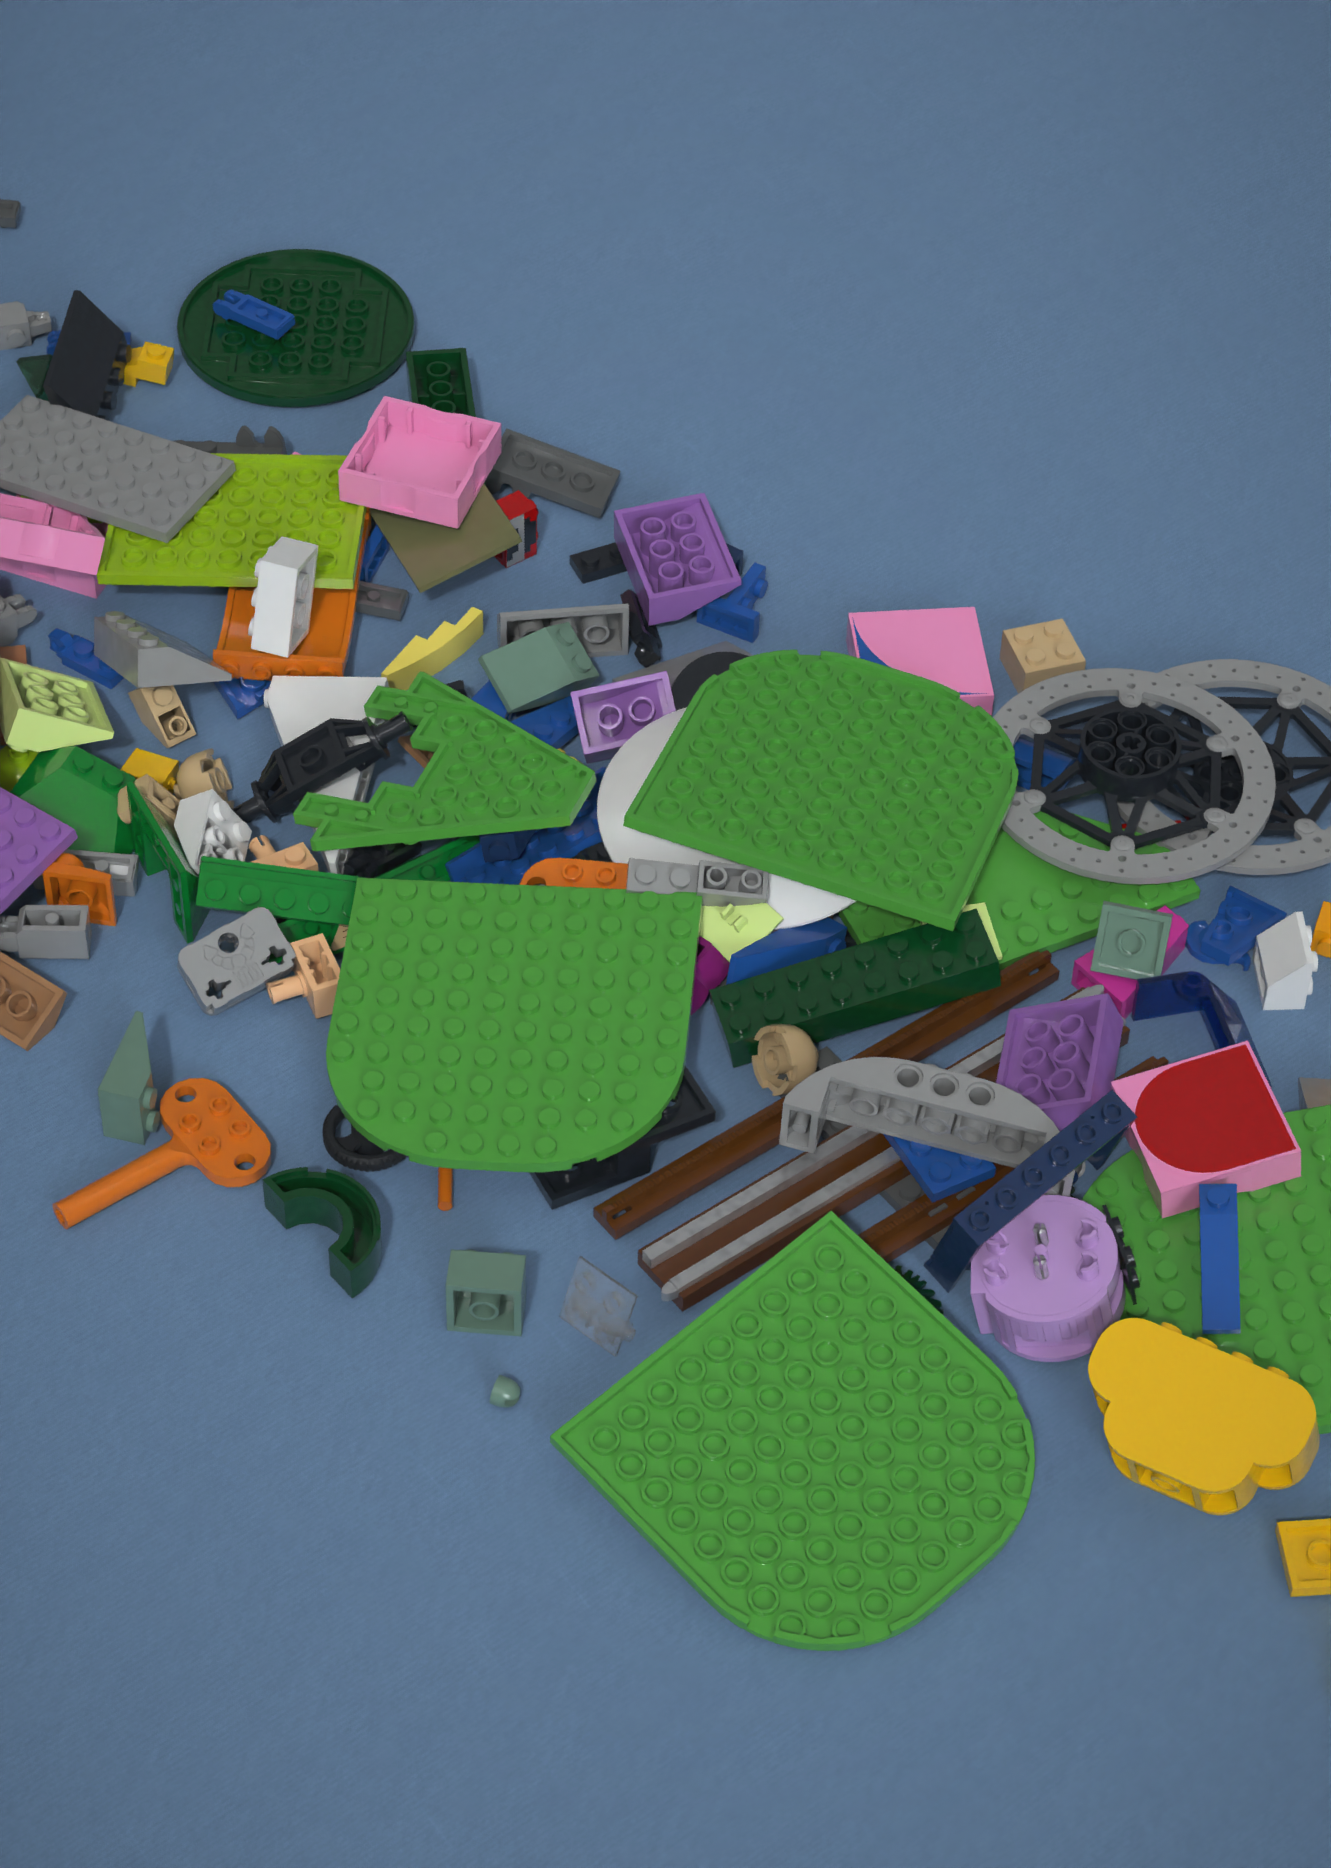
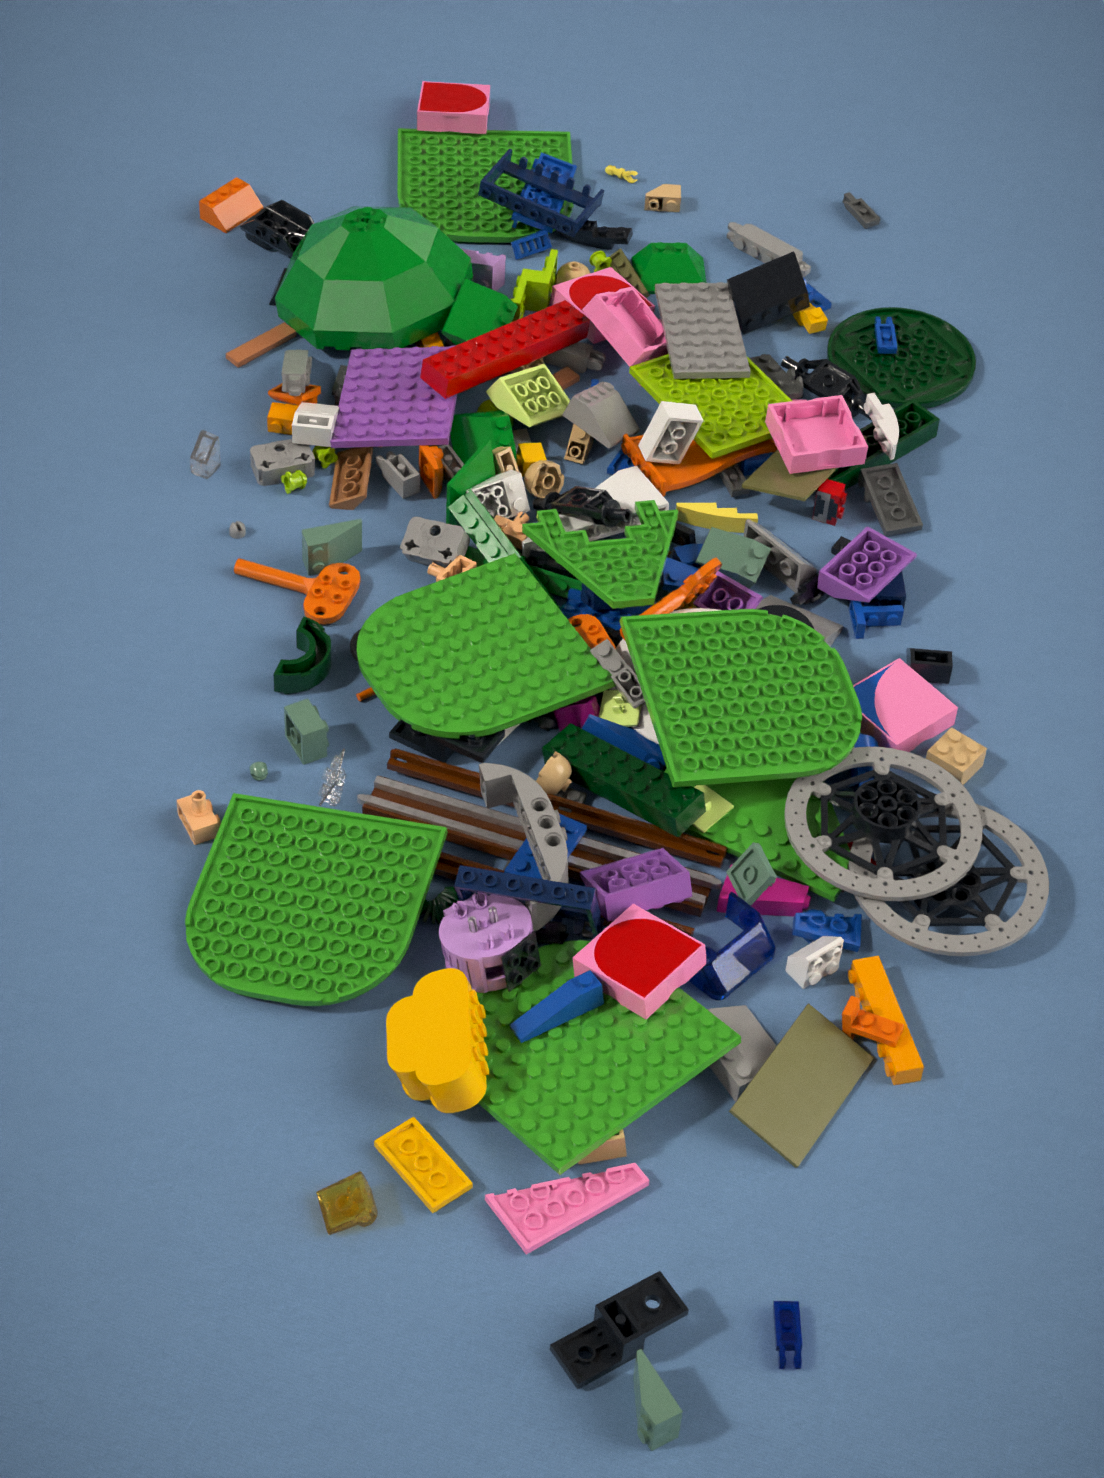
camera: 55 degrees right, 0 degrees up
(294, 410) = (829, 381): none -> black plate
(441, 394) = (885, 424): none -> white slope
(544, 1508) = (198, 817): none -> light nougat brick
(585, 739) = (692, 586): none -> orange piece
(866, 589) = (932, 665): none -> black slope

